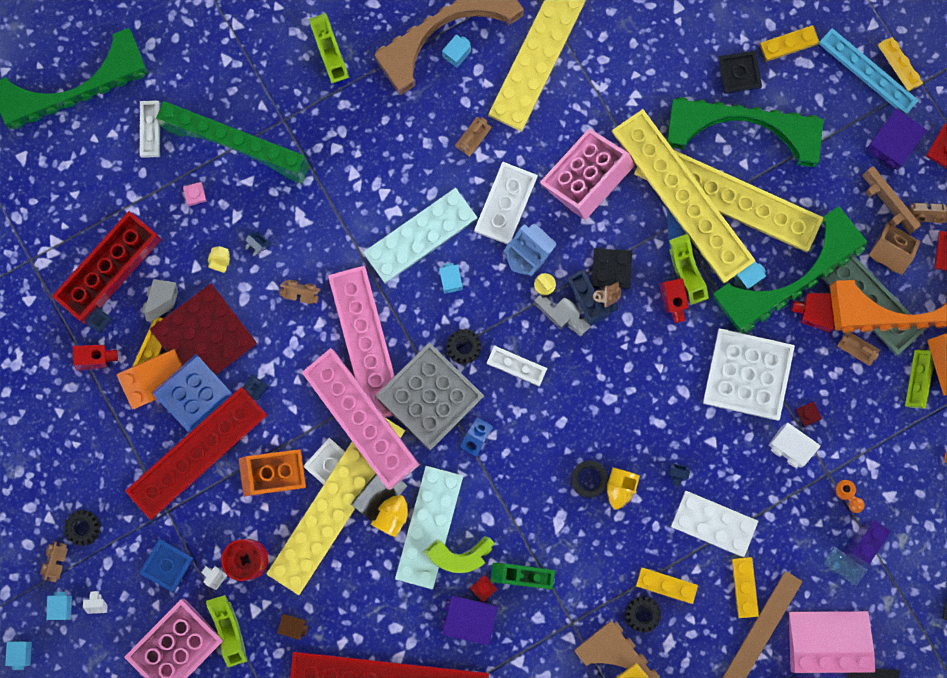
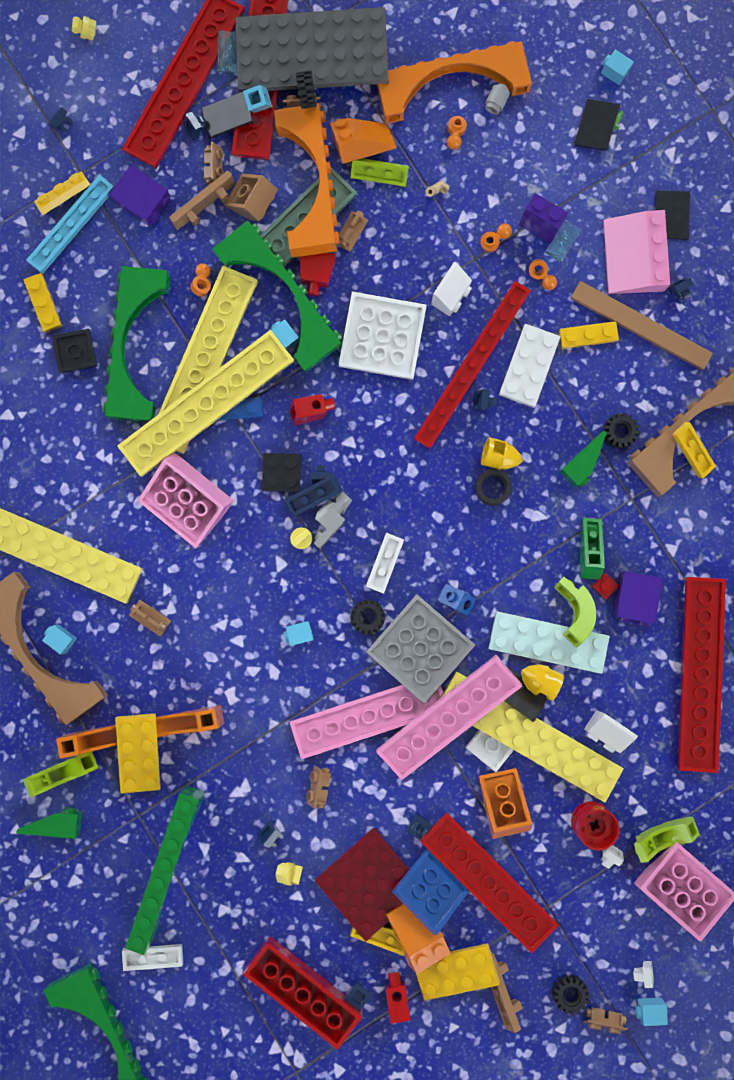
camera: 100 degrees left, 5 degrees up
(18, 654) = (700, 1049): medium azure brick -> none
(74, 463) = (506, 1006): none -> medium nougat hinge
(112, 417) = (459, 973): none -> yellow plate
(160, 300) = (334, 932): light grey slope -> none
(166, 565) = (602, 904): blue plate -> none
(194, 194) = (220, 904): bright pink plate -> none
(280, 46) = (60, 824): none -> green slope
(293, 627) = (655, 772): reddish brown brick -> none
(335, 581) = (610, 732): none -> white slope
(343, 120) = (138, 753): none -> yellow plate
(365, 123) = (103, 737): none -> orange arch
(420, 235) = (255, 666): light aqua plate -> none
(505, 203) = (219, 581): white plate -> none
(529, 250) = (267, 555): medium blue piece -> none
(608, 294) = (310, 474): medium nougat hinge -> none
(608, 570) = (582, 465): none -> green slope
(666, 585) = (591, 409): yellow plate -> none
(686, 268) = (281, 398): lime arch -> none
(717, 465) = (472, 364): none -> red plate
(802, 548) = (548, 281): none -> orange plate
(808, 414) = (418, 278): dark red plate -> none
(818, 198) = (202, 272): none -> orange plate
(902, 437) = (440, 186): none -> tan arm

